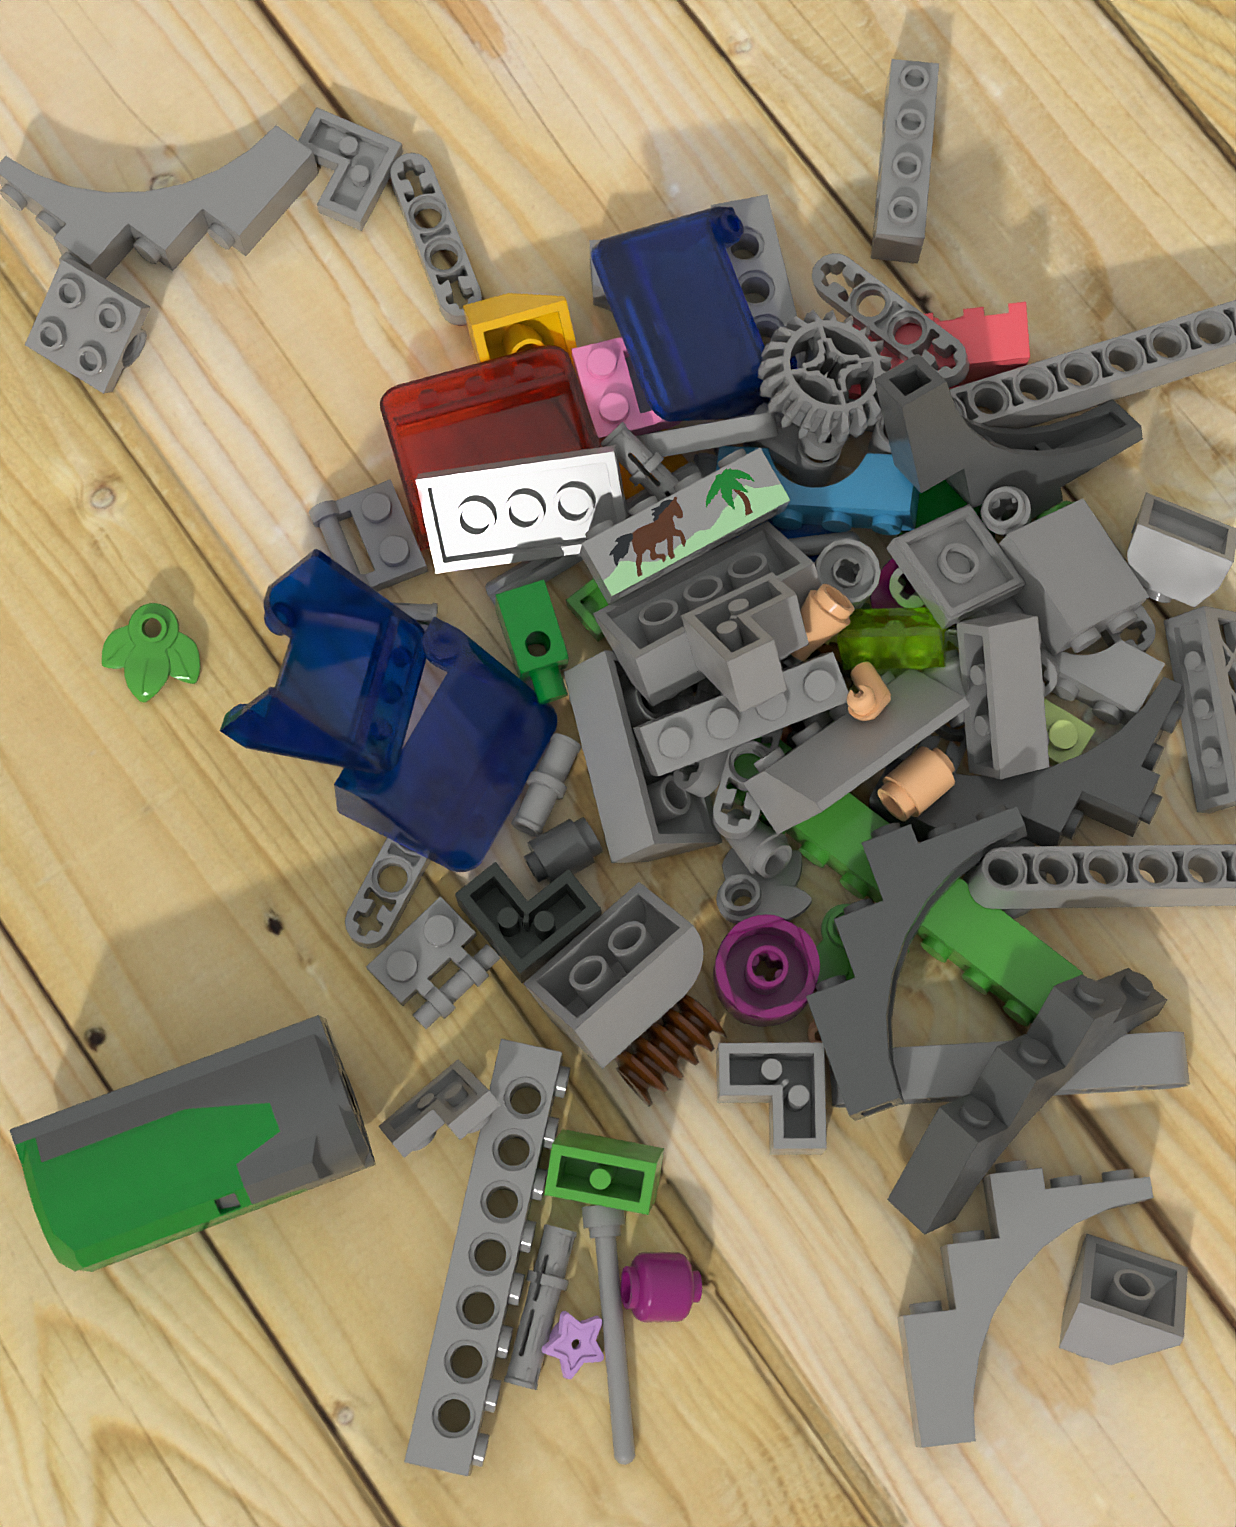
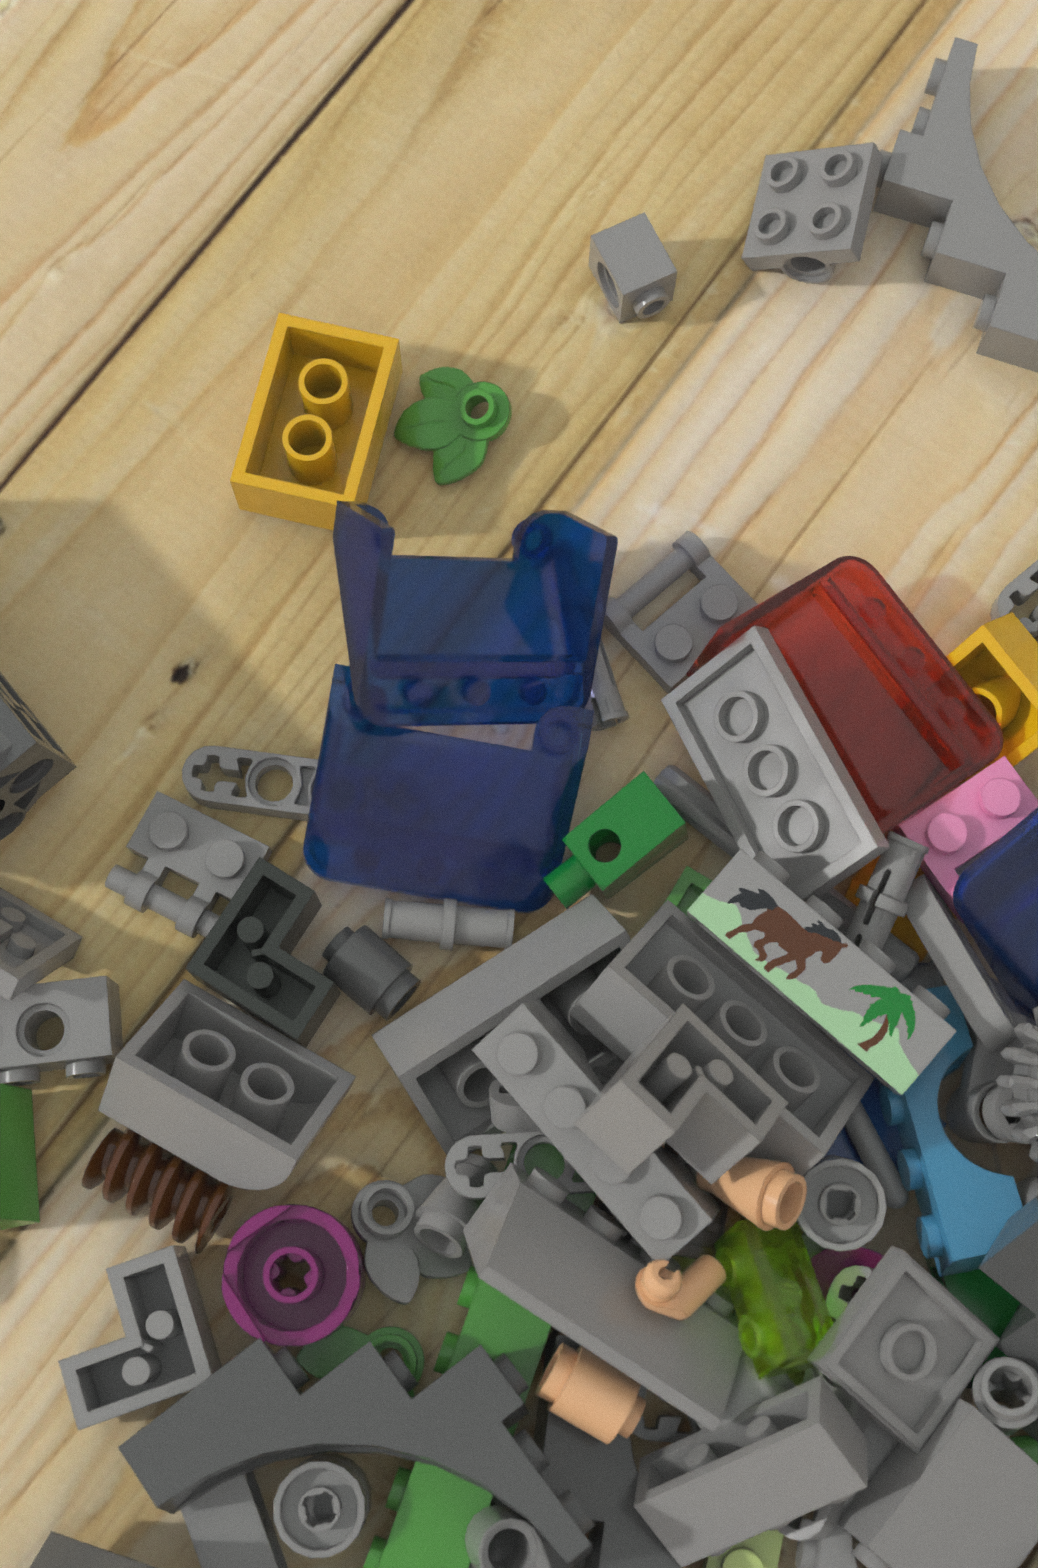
camera: 70 degrees right, 0 degrees up
(82, 475) = (632, 268): none -> light grey brick
(120, 749) = (316, 421): none -> yellow brick
(930, 1001) = (322, 1505): none -> light grey wheel

